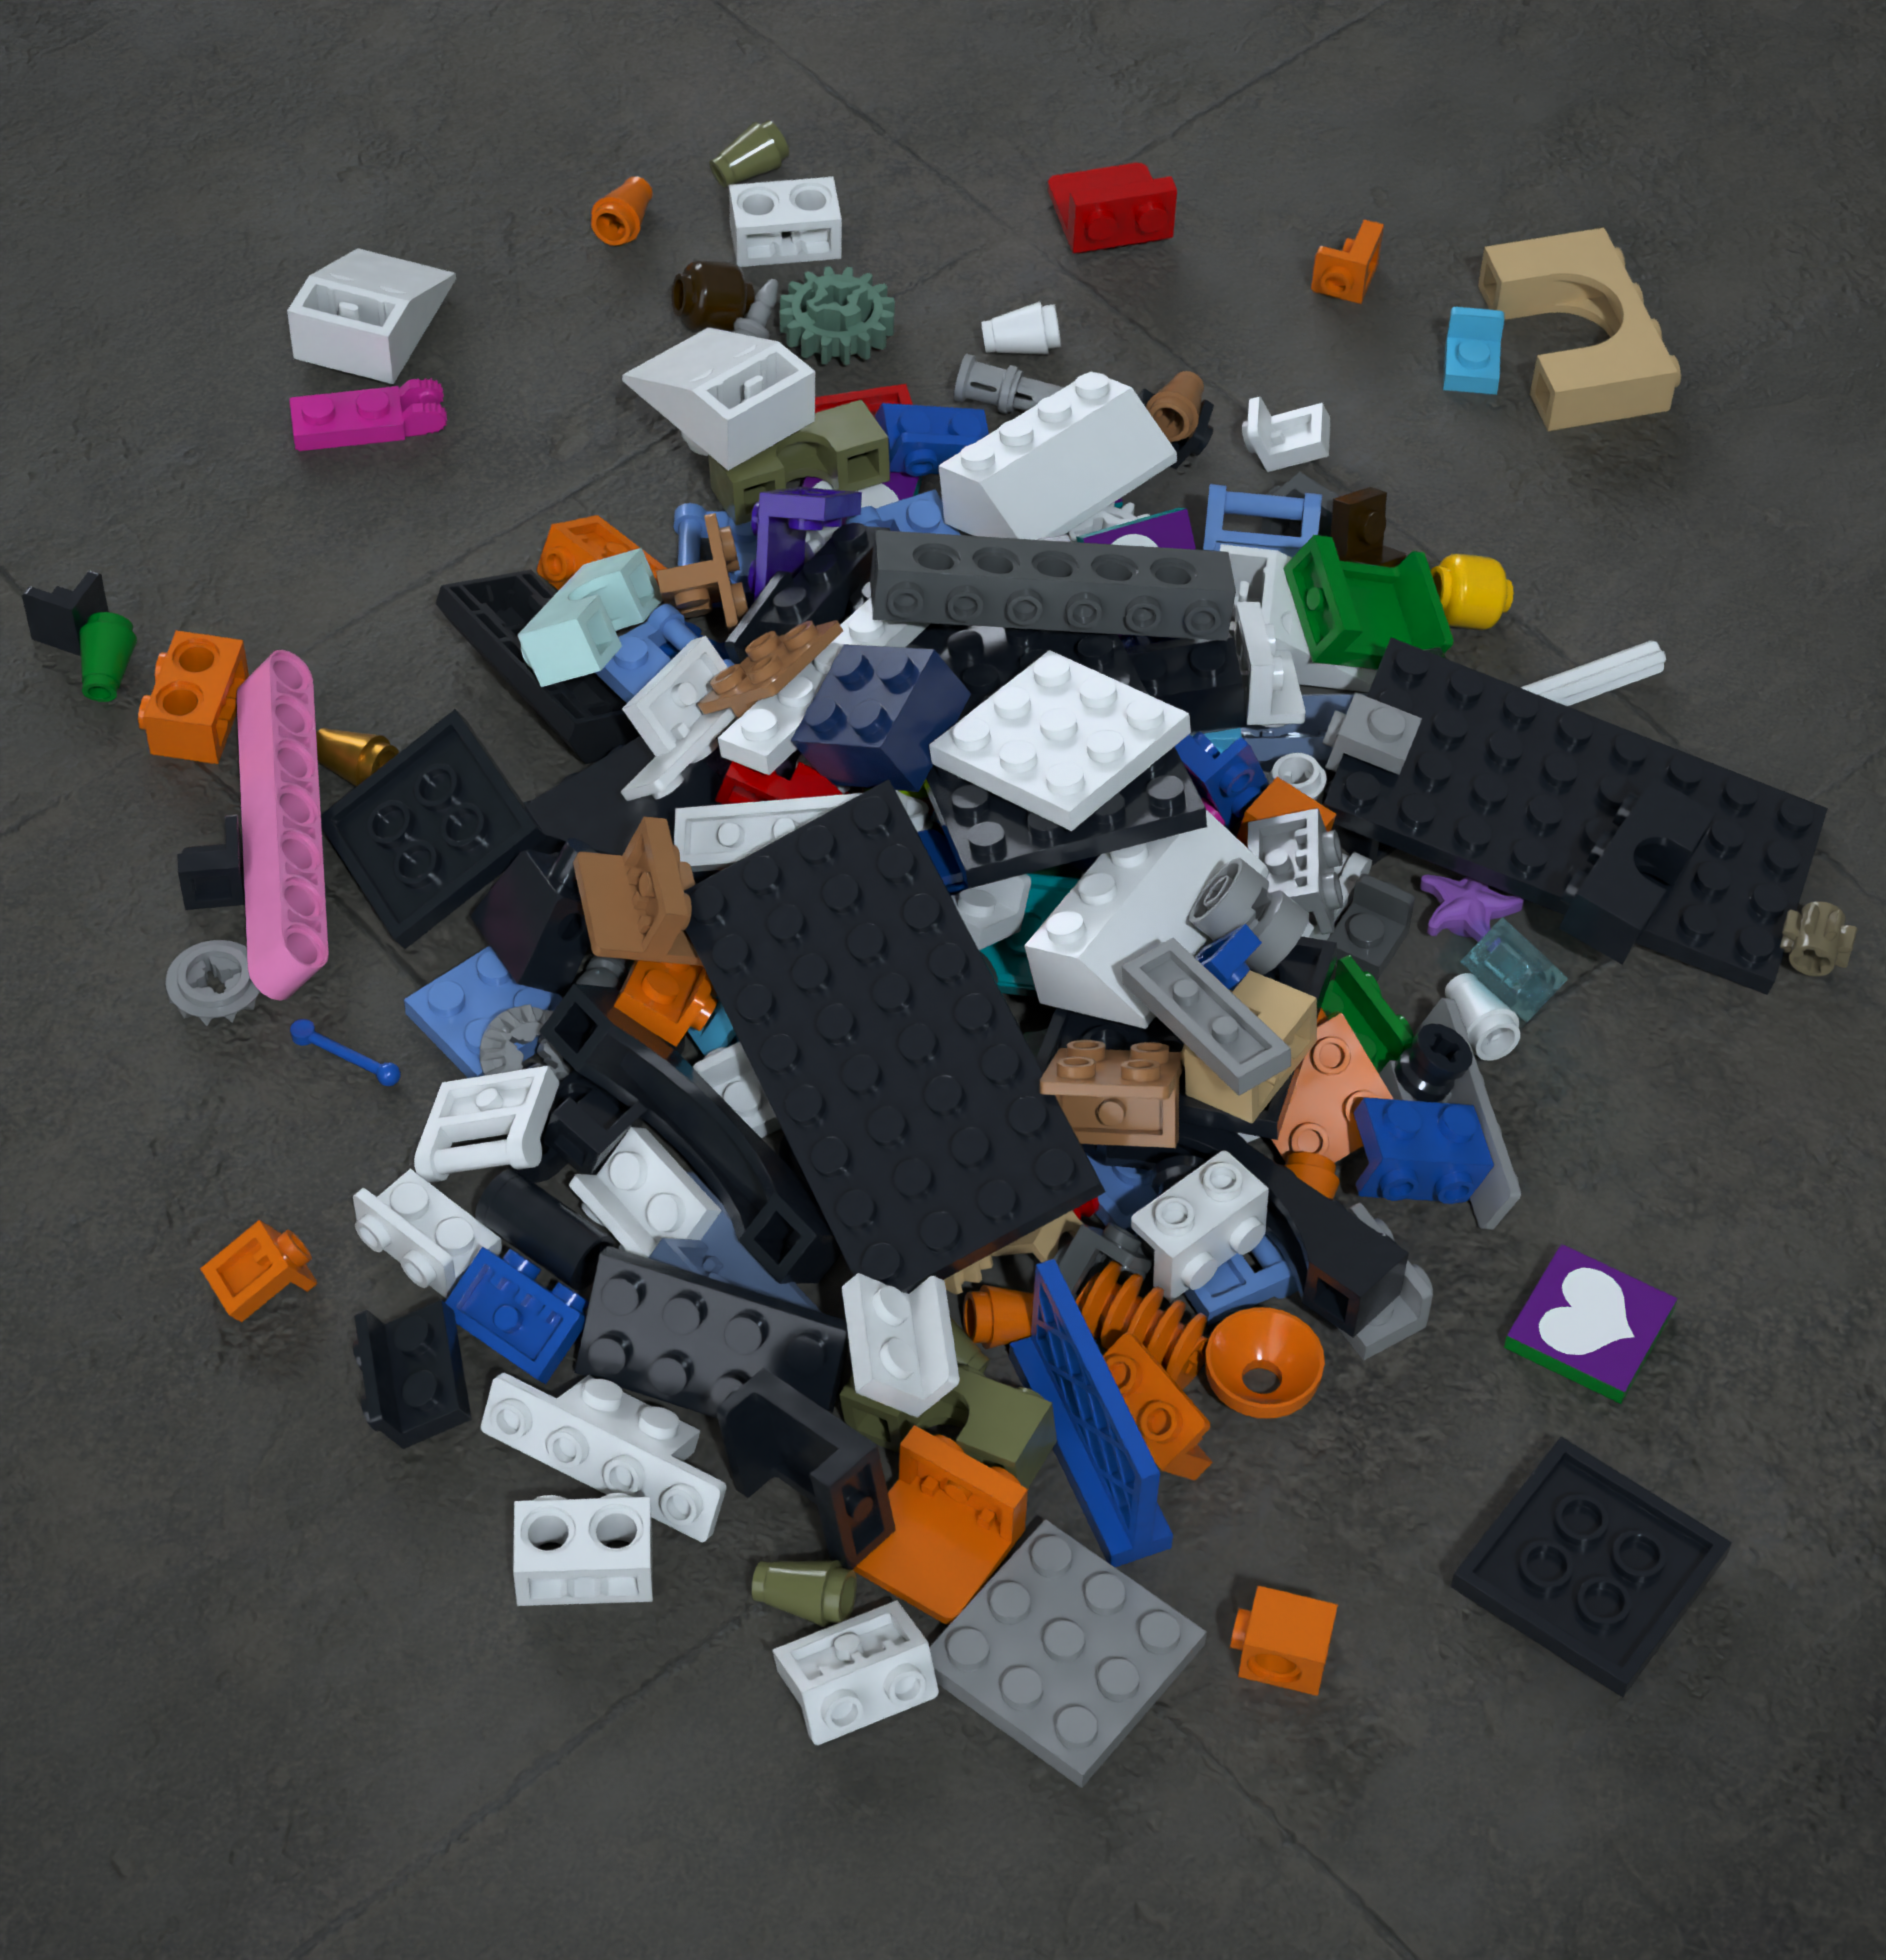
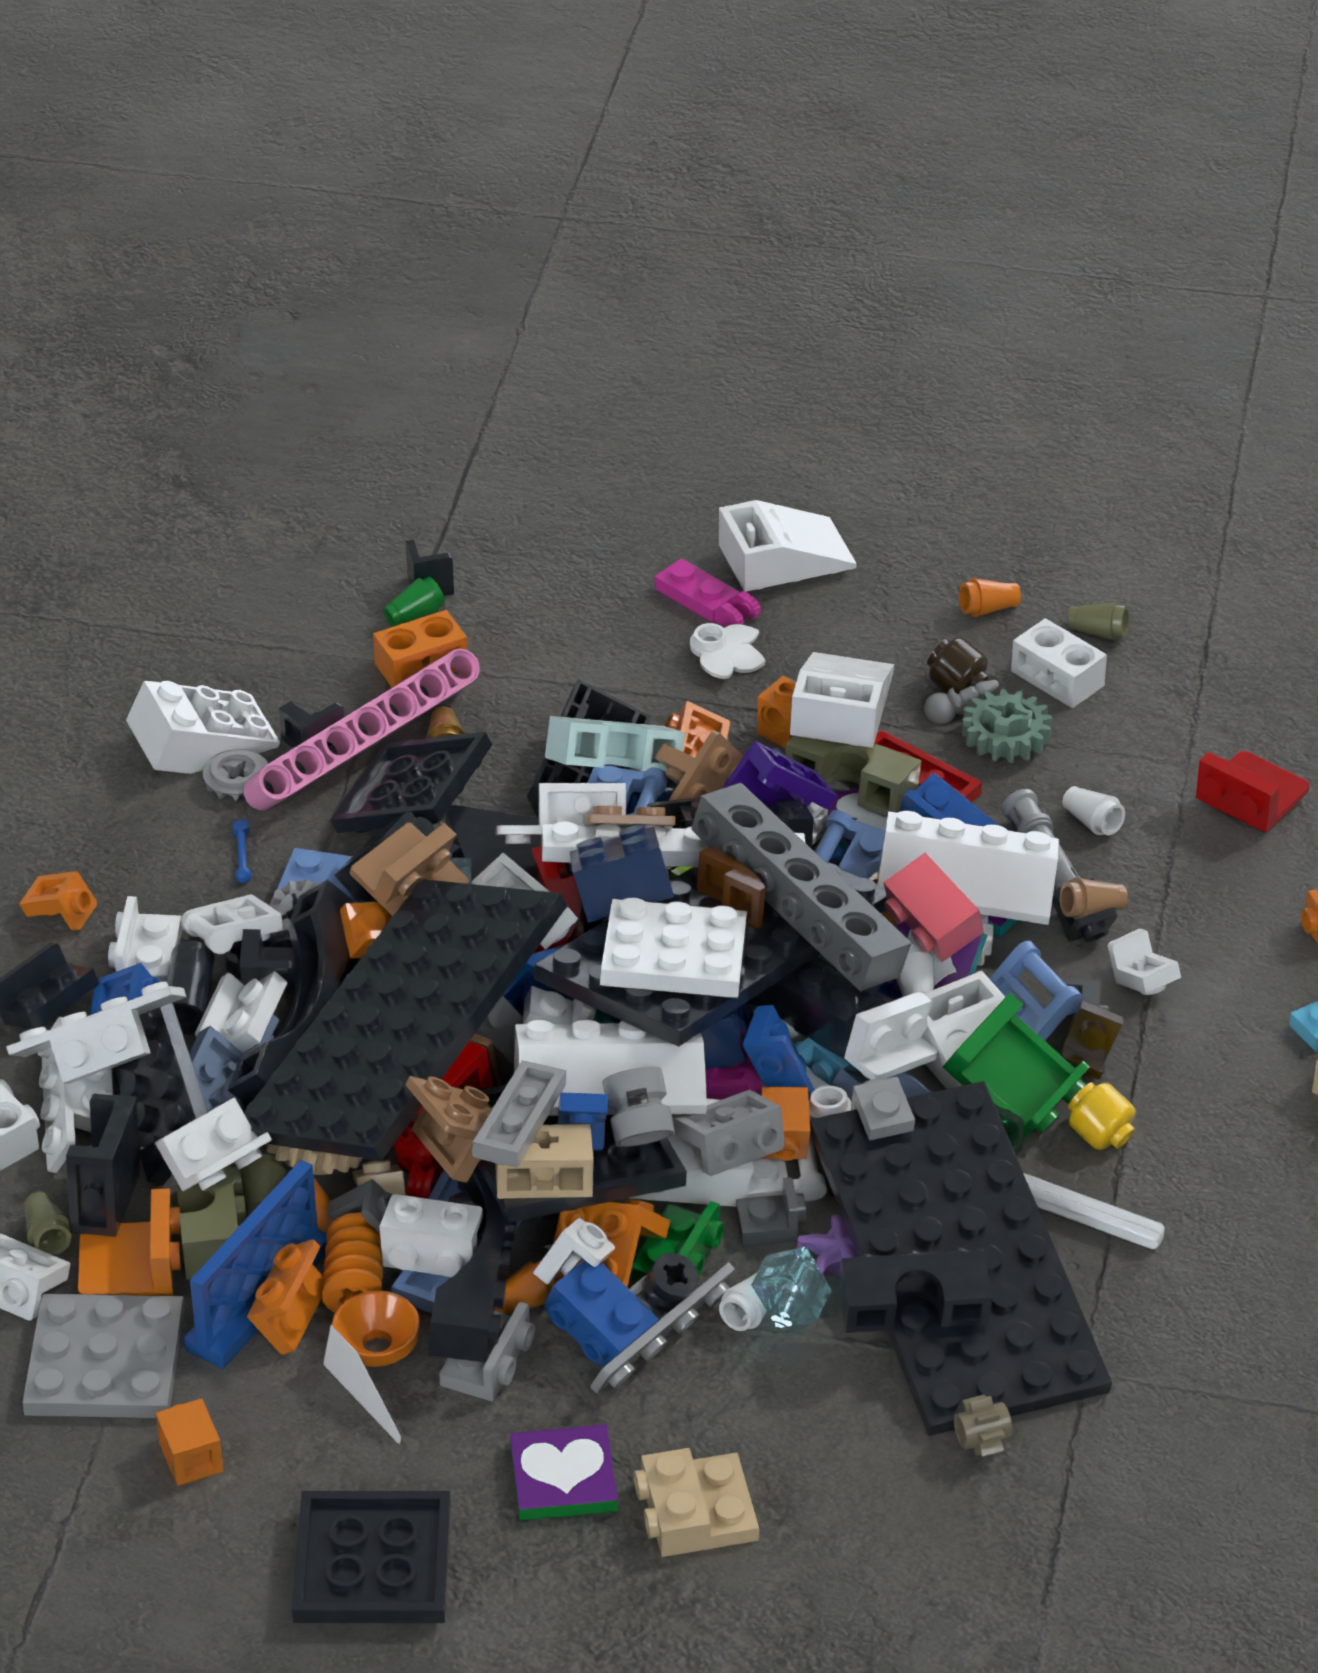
camera: 55 degrees right, 10 degrees down
(100, 970) = (190, 725): none -> white slope
(471, 453) = (726, 649): none -> white plate
(613, 1351) = (98, 1041): none -> white bracket
(640, 463) = (775, 711): none -> orange brick
(996, 635) = (732, 884): none -> reddish brown slope
(1133, 508) = (932, 907): none -> coral brick
(1316, 1425) = (350, 1371): none -> white sticker
(1336, 1114) = (574, 1244): none -> white bracket
(1725, 1234) = (695, 1501): none -> tan plate

